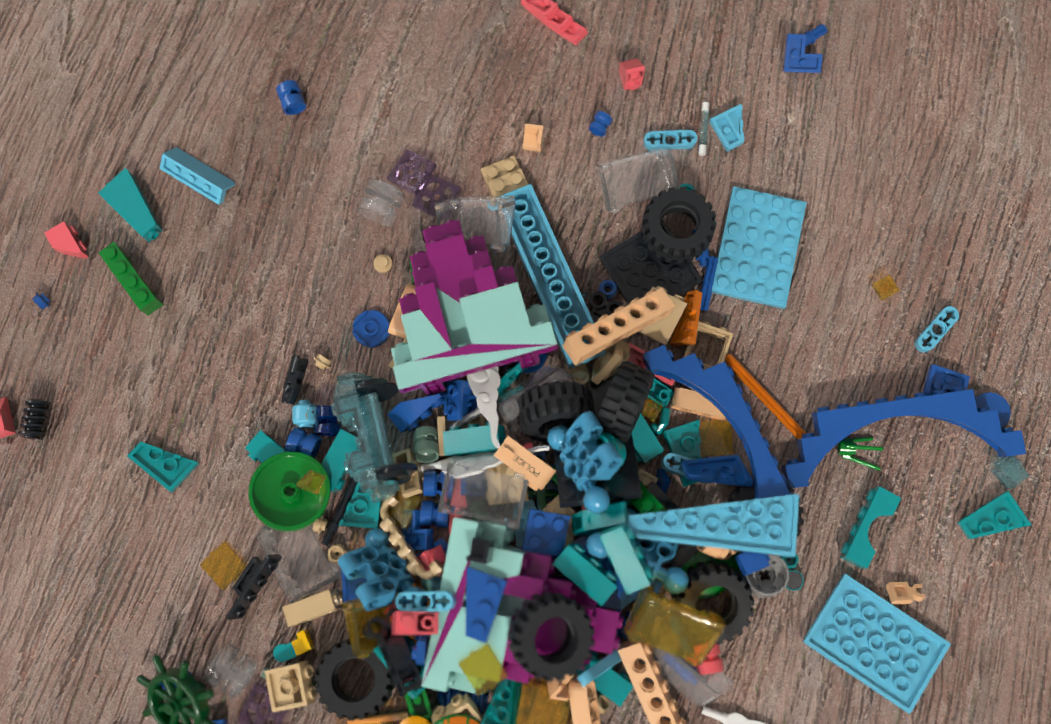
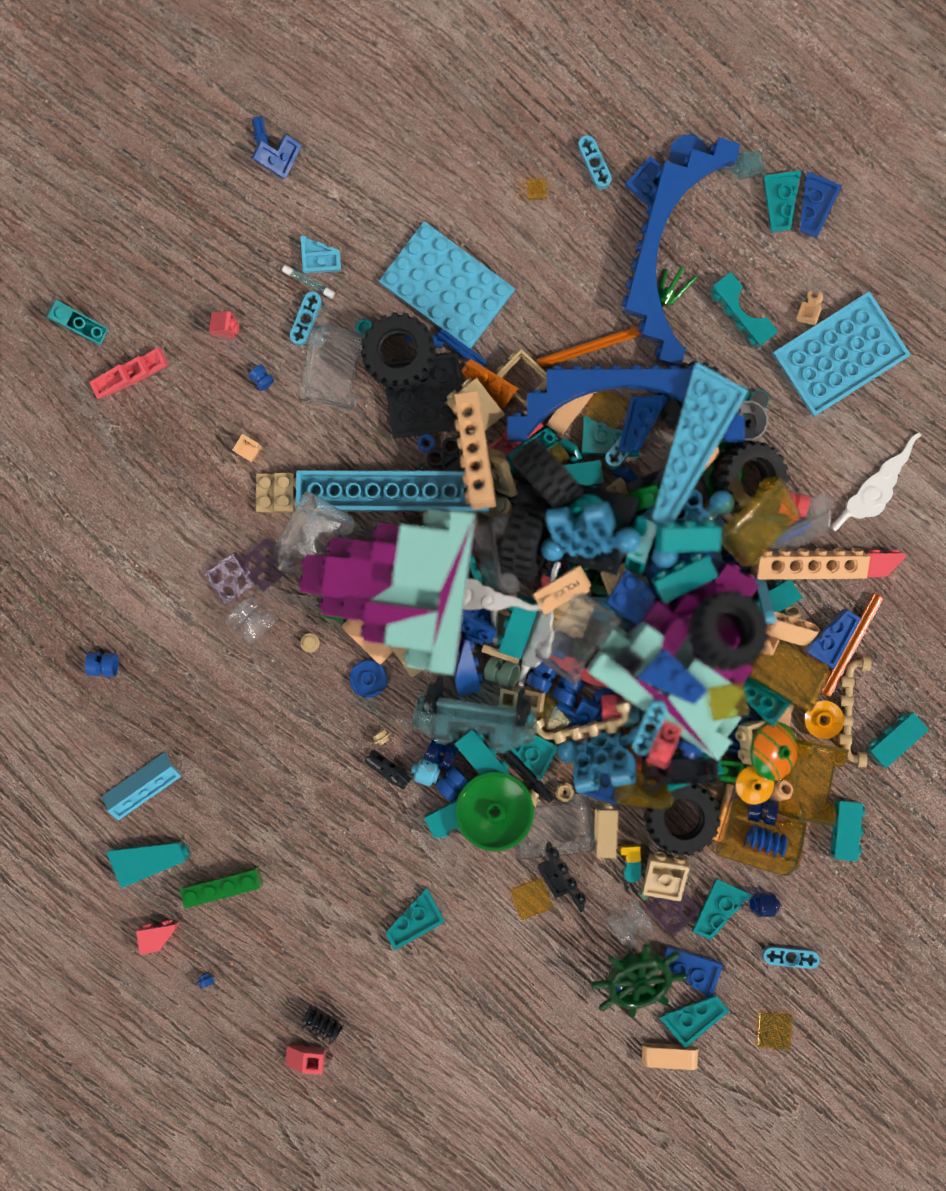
camera: 70 degrees left, 10 degrees up
(311, 482) = (496, 788): clear yellow slope -> none
(1013, 555) = (817, 203): none -> blue wing

